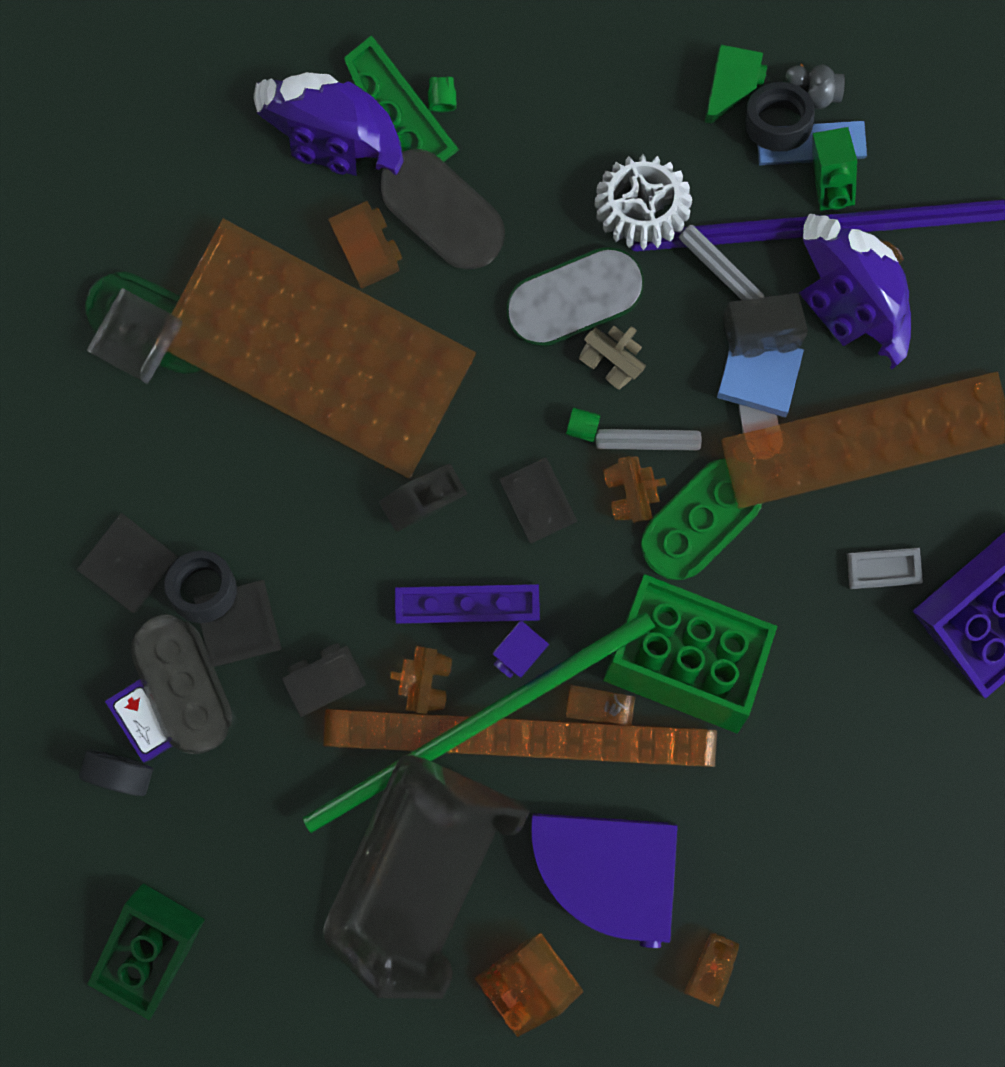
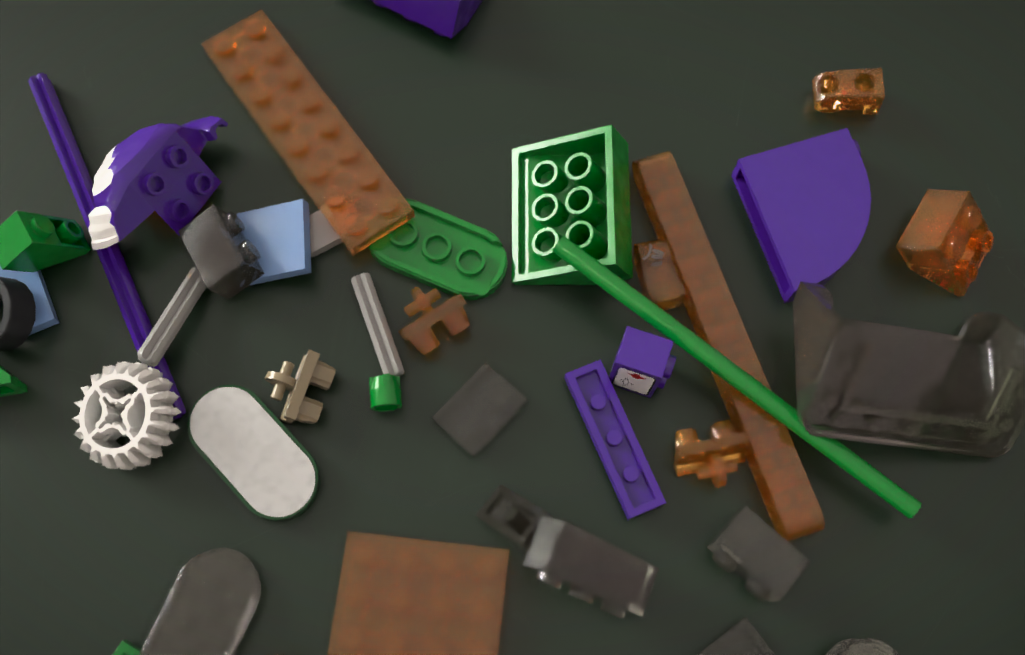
camera: 110 degrees left, 15 degrees down
(365, 534) = (590, 568): none -> clear smoke brick
(884, 568) = (421, 78): light grey tile -> none

